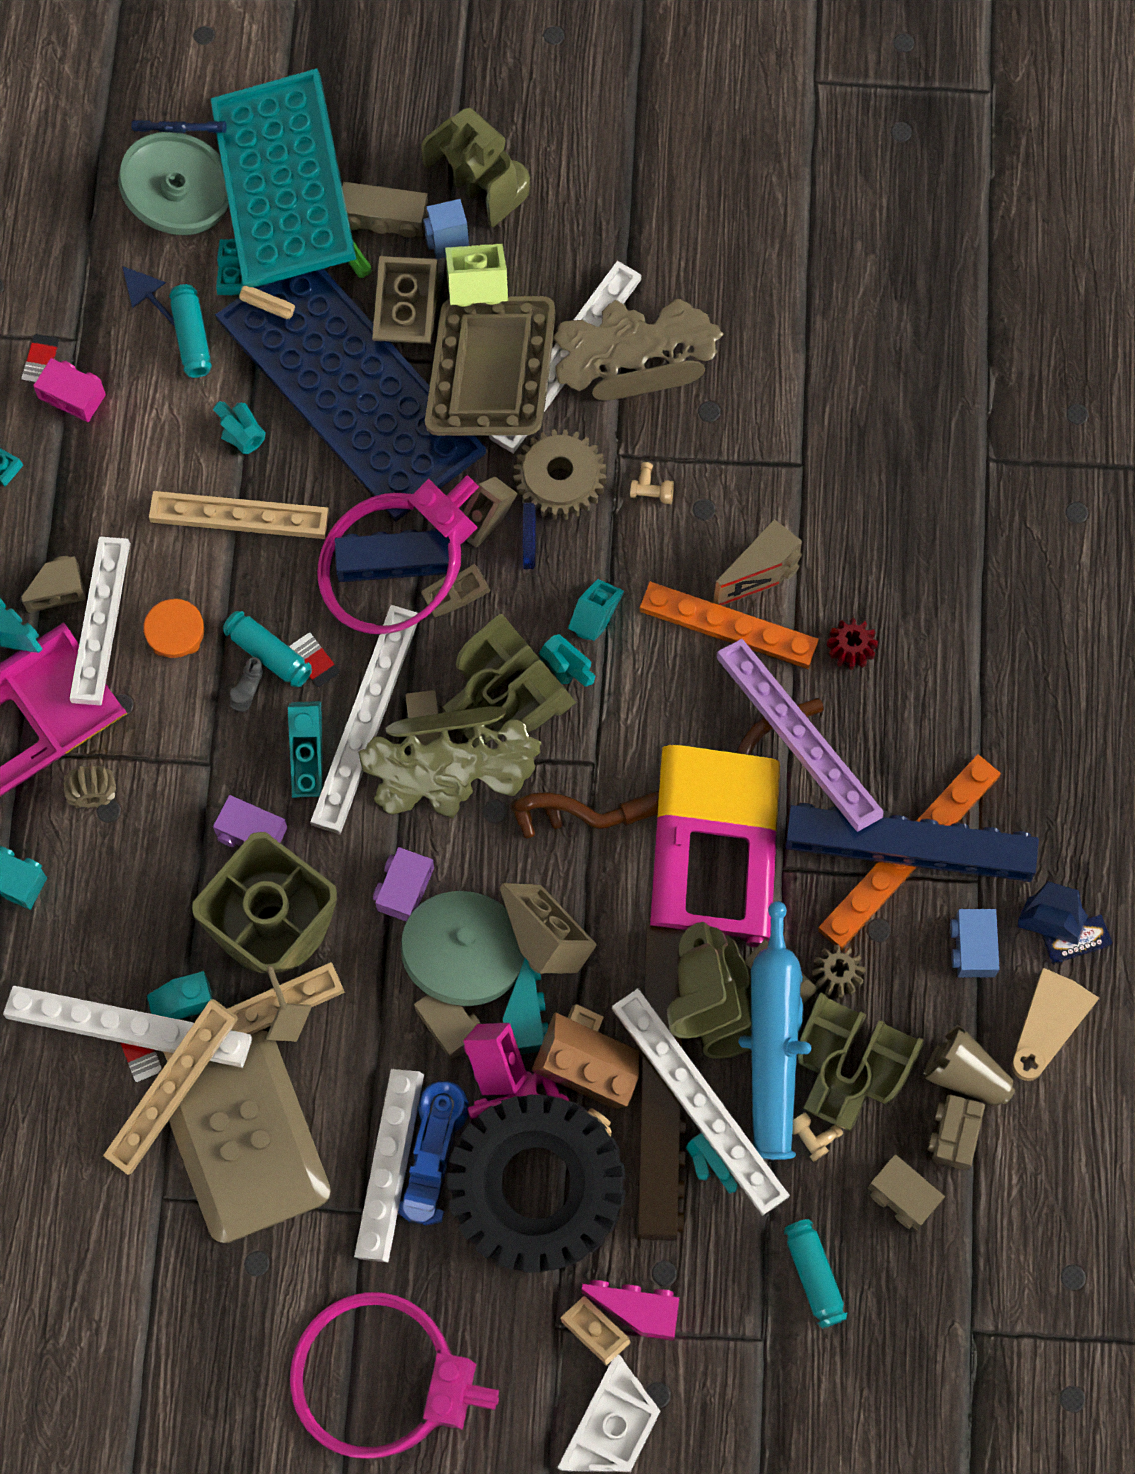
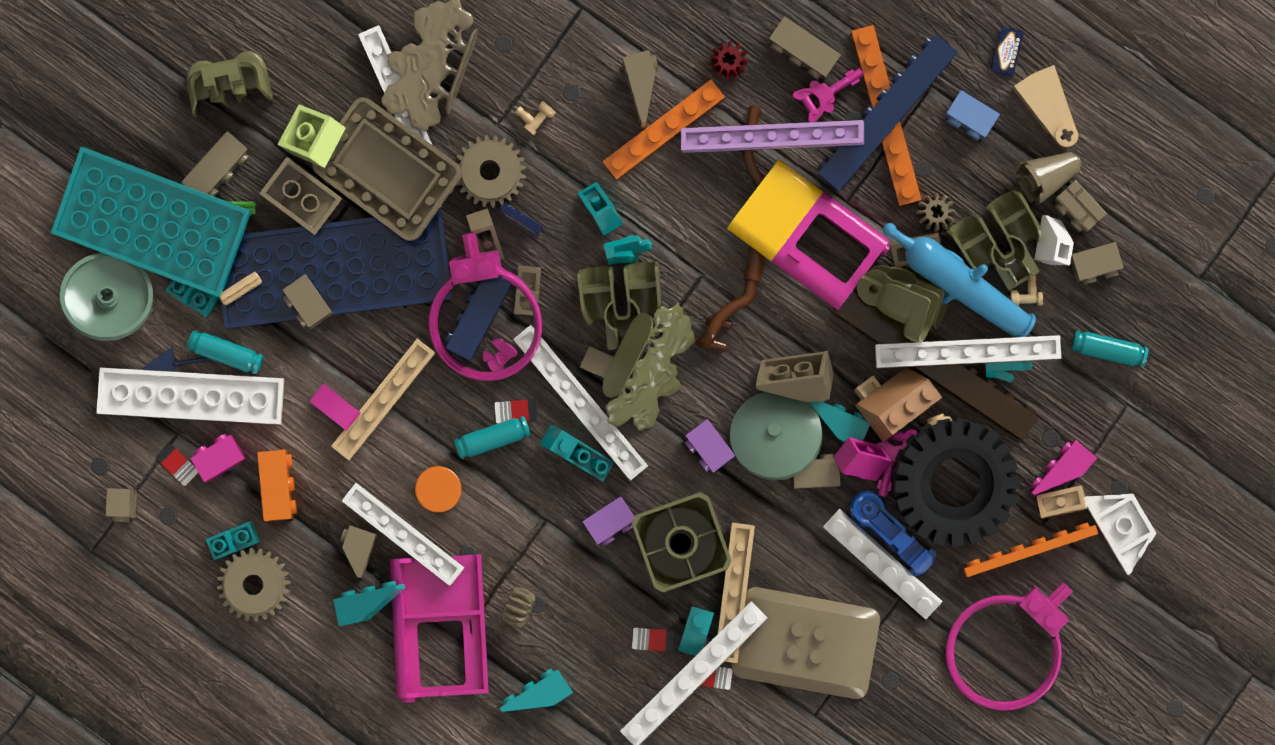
camera: 65 degrees left, 15 degrees up
(75, 462) = (276, 485): none -> orange brick
(122, 327) = (190, 396): none -> white plate
(143, 961) = (653, 639): none -> sticker
(170, 1086) = (754, 669): tan plate -> none
(178, 127) = (61, 269): dark blue piece -> none
(199, 471) = (335, 407): none -> dark pink slope
(240, 427) = (318, 361): teal rock -> none
(243, 693) = (508, 465): dark grey piece -> none
(289, 1017) = (753, 570): dark tan piece -> none
(294, 372) = (307, 302): none -> dark tan brick
(358, 606) = (497, 361): none -> dark pink piece
(445, 227) = (263, 134): medium blue brick -> none
(524, 1337) = (1038, 546): none -> orange plate
(887, 768) = (824, 94): none -> dark pink piece
(894, 1126) = (1055, 243): none -> white slope
(920, 715) = (803, 49): none -> dark tan brick
(1055, 913) = (984, 54): dark blue slope -> none

